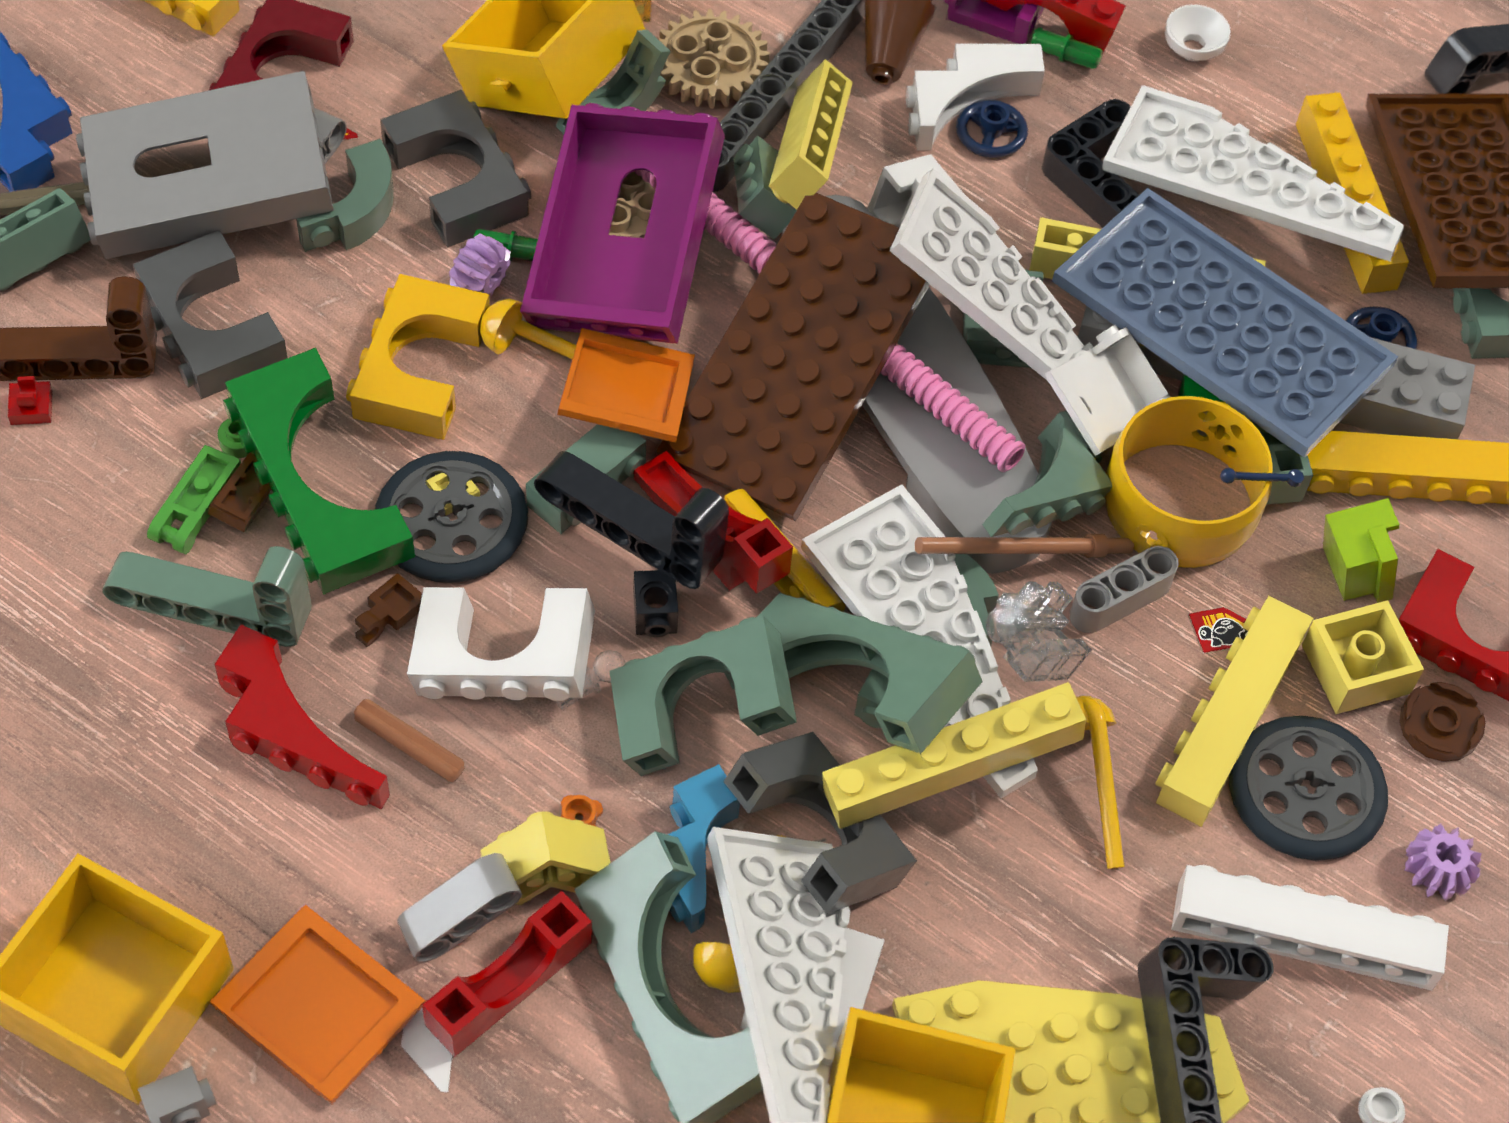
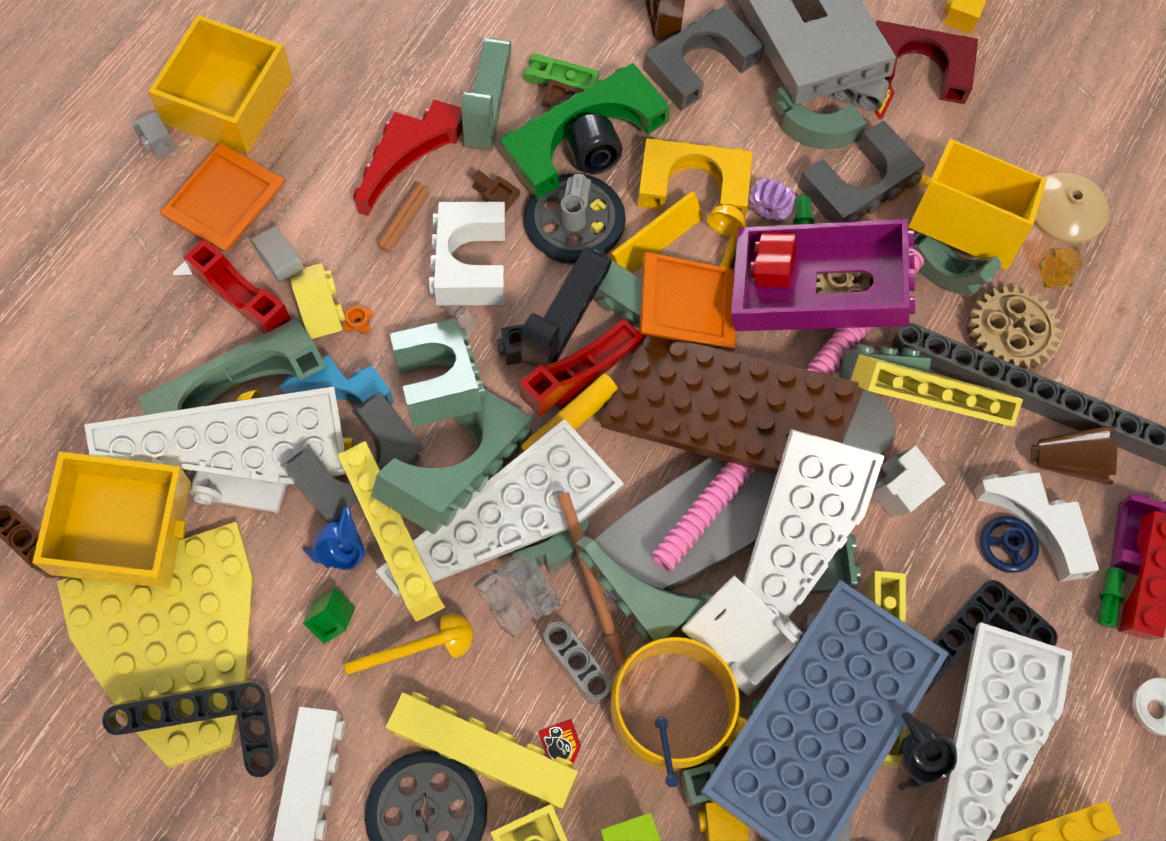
camera: 85 degrees right, 10 degrees up
(340, 464) = (594, 144): none -> black head
(441, 496) = (575, 202): none -> light grey piece
(499, 415) = (659, 233): none -> yellow slope
(582, 274) = (774, 260): none -> red brick
(945, 857) = (337, 544): none -> blue piece
(1043, 880) = (329, 615): none -> green panel
(1266, 234) = (925, 754): none -> black piece

